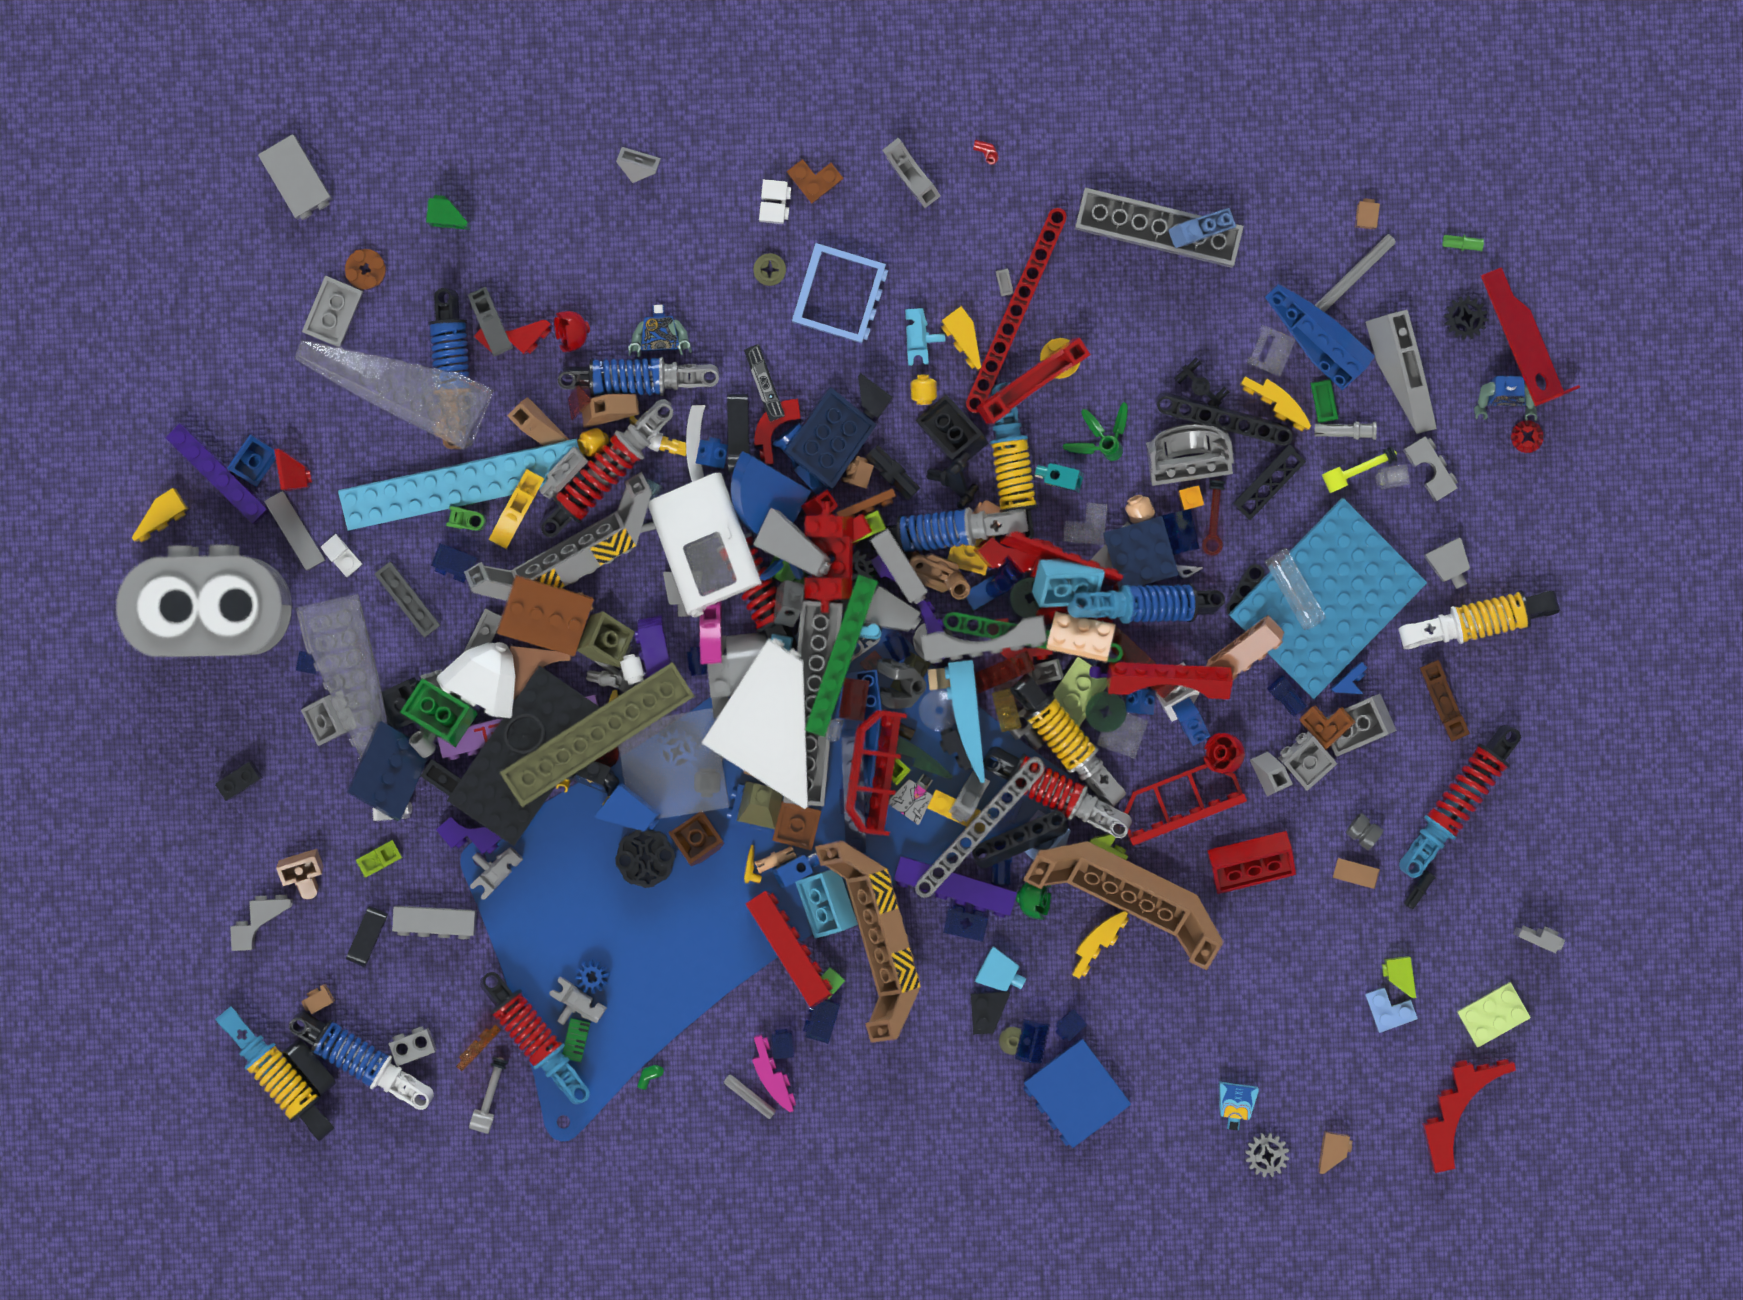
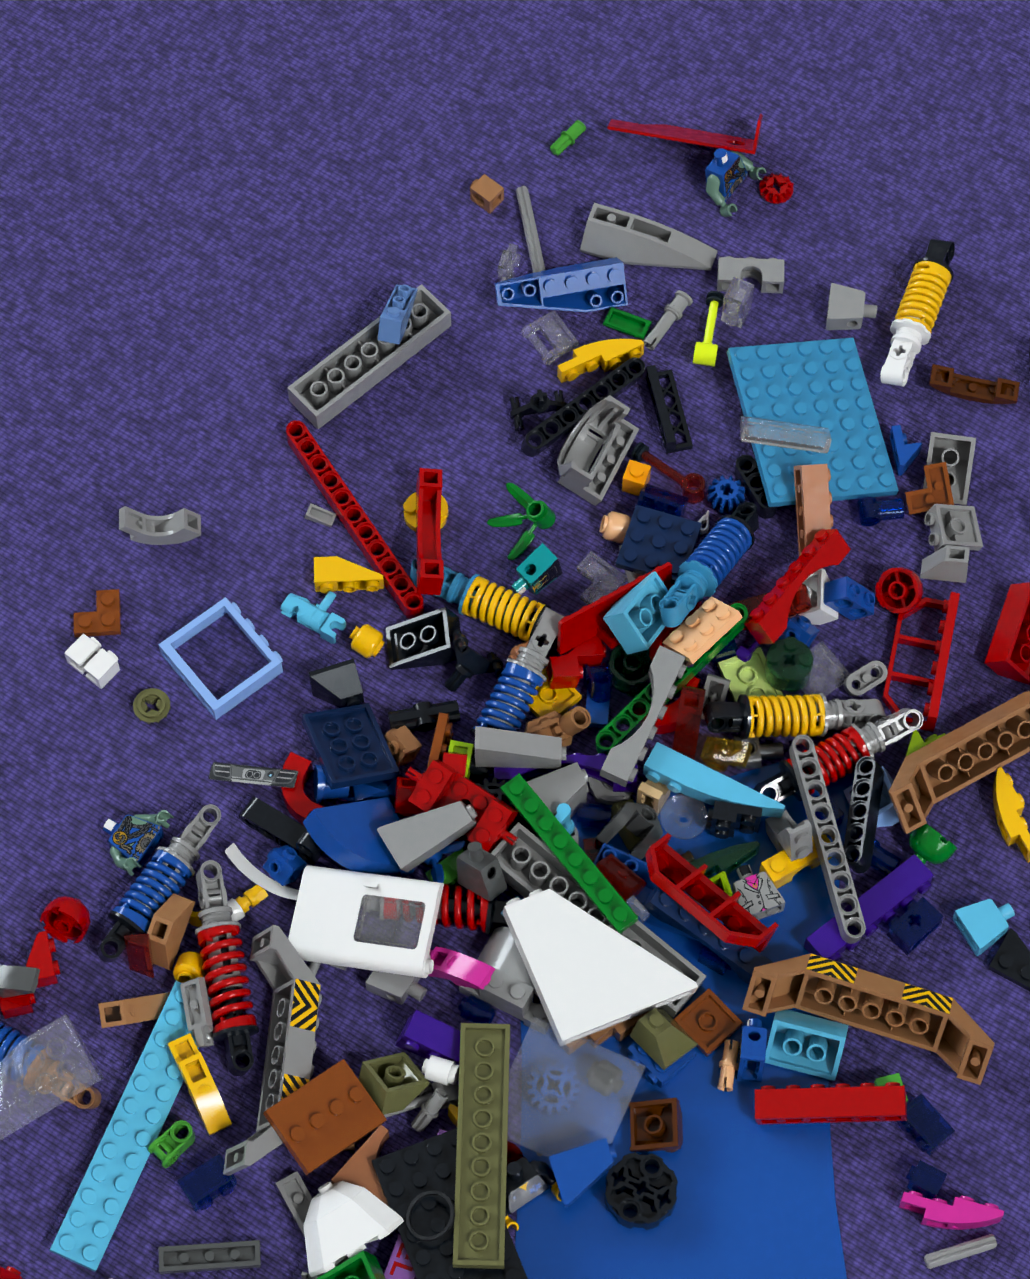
camera: 60 degrees left, 25 degrees down
(749, 875) = (722, 1098): yellow bar -> none
(988, 150) = (193, 455): red arm -> none
(1137, 772) = (865, 679): none -> light grey plate
(1229, 577) = (726, 486): none -> blue gear
(1303, 281) = (509, 260): none -> clear plate
(1468, 327) = (635, 172): black gear -> none

